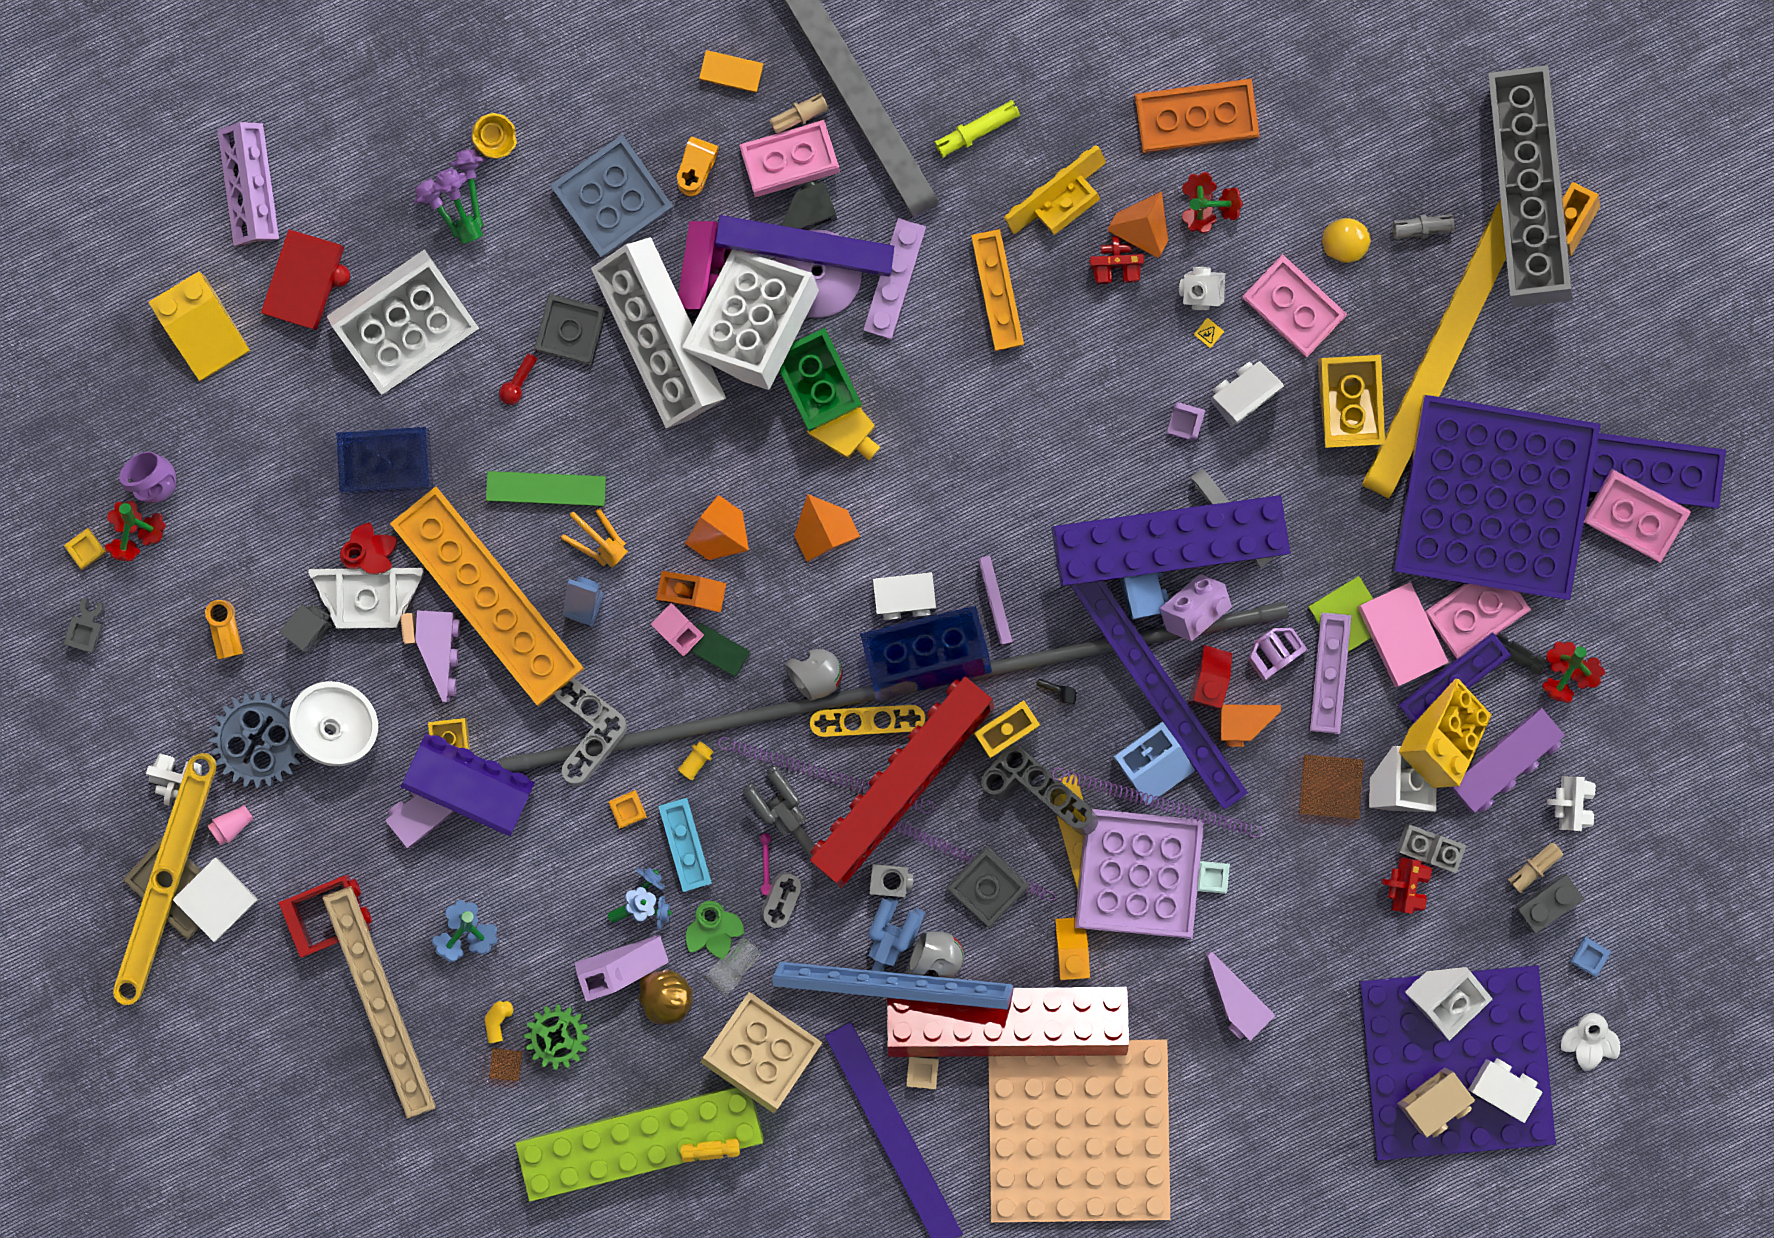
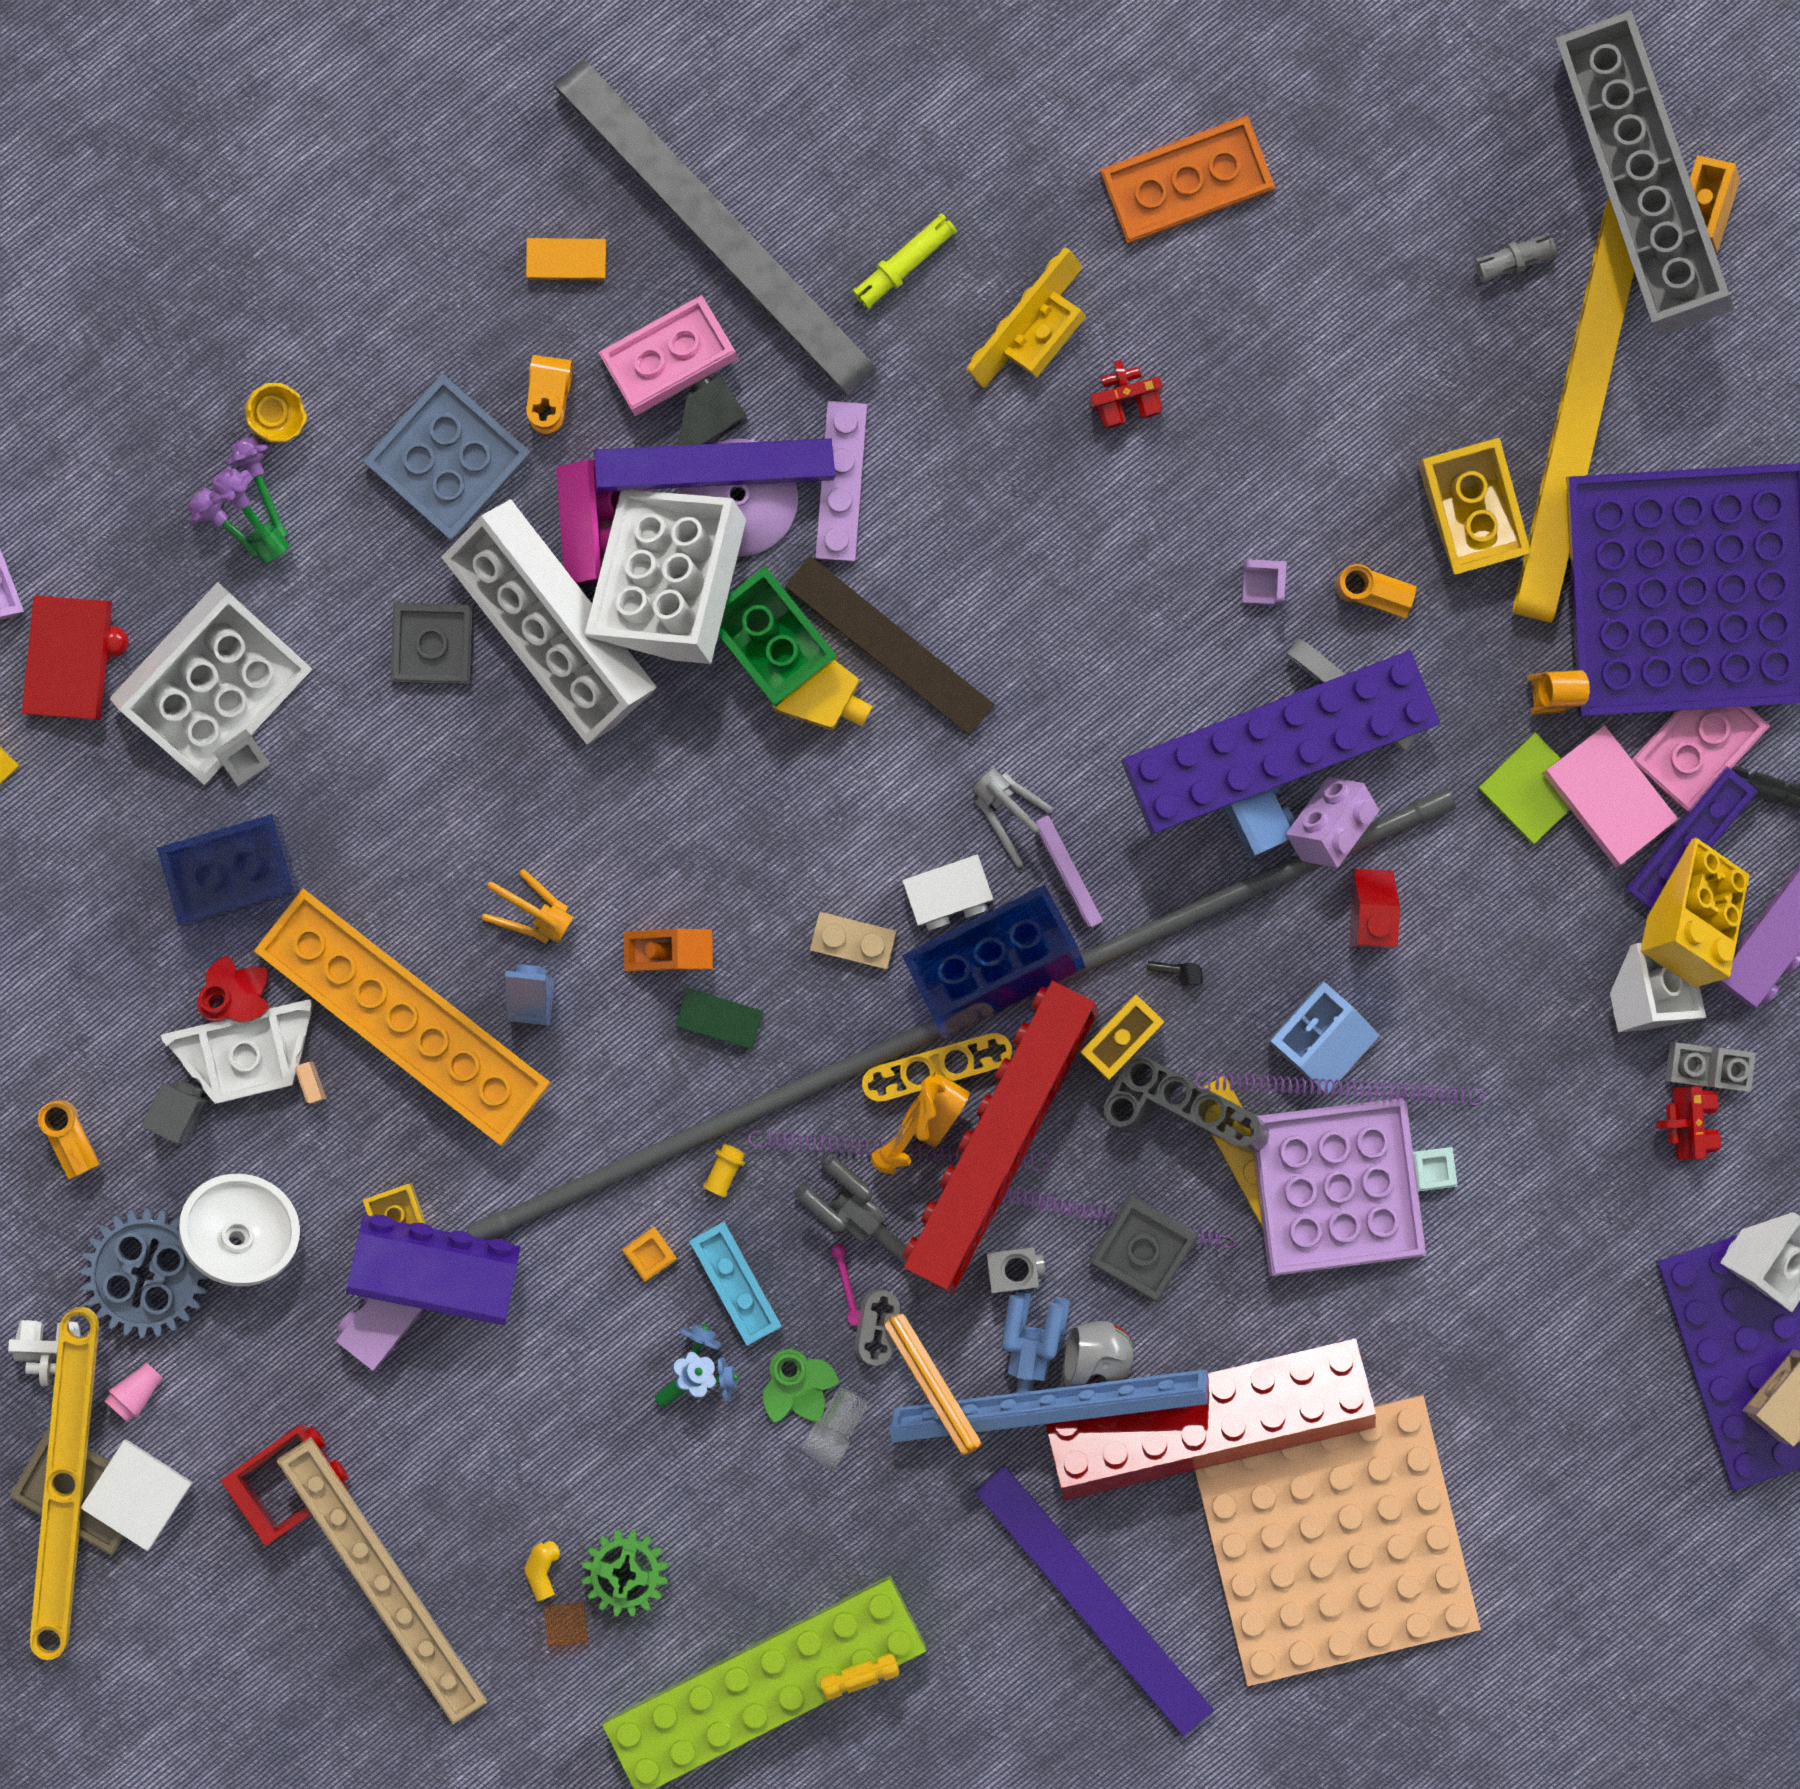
camera: 10 degrees left, 0 degrees up
(413, 381) = (241, 757): none -> light grey plate
(436, 643) = (349, 1092): lavender slope -> none
(463, 918) = (467, 1445): medium blue plant -> none
(511, 392) = (373, 742): red bar -> none
(546, 488) = (447, 859): bright green tile -> none
(598, 723) = (586, 1150): light grey beam -> none
(619, 967) = (686, 1463): lavender slope -> none
(665, 997) = (754, 1488): pearl gold hair -> none
(677, 629) = (661, 1004): bright pink brick -> none
(719, 531) = (687, 863): orange slope -> none
(761, 1052) = (897, 1533): tan plate -> none
(799, 113) = (668, 293): tan axle -> none
(811, 950) = (932, 1384): none -> light orange axle
(817, 675) = (858, 1023): light grey helmet -> none
(823, 528) = (822, 828): orange slope -> none
(827, 615) = (853, 940): none -> tan plate
(851, 757) = (926, 1119): none -> light orange piece
(902, 406) = (889, 645): none -> dark brown tile
(922, 1072) = (1113, 1511): tan plate -> none
(956, 529) = (995, 791): none -> light grey plant
(997, 290) = (979, 466): light orange plate -> none
(1071, 950) = (1272, 1306): light orange slope -> none
(1143, 225) = (1149, 338): orange slope -> none
(1160, 692) = (1312, 943): dark purple plate -> none
(1200, 192) = (1215, 279): red plant -> none
(1209, 332) = (1267, 459): yellow sticker -> none
(1211, 283) = (1258, 396): white brick -> none
(1240, 1004) = (1508, 1328): lavender slope -> none
(1244, 722) = (1429, 957): orange slope -> none
(1245, 393) = (1334, 527): white slope -> none
(1268, 447) = (1379, 591): none -> light orange piece
(1275, 651) = (1449, 855): lavender piece -> none
(1294, 306) = (1370, 399): bright pink tile -> none
(1330, 673) = (1527, 867): lavender tile -> none
(1331, 786) = (1561, 1015): clear orange tile -> none
(1346, 240) = (1419, 298): yellow hair -> none
(1382, 549) = (1558, 691): none -> light orange piece

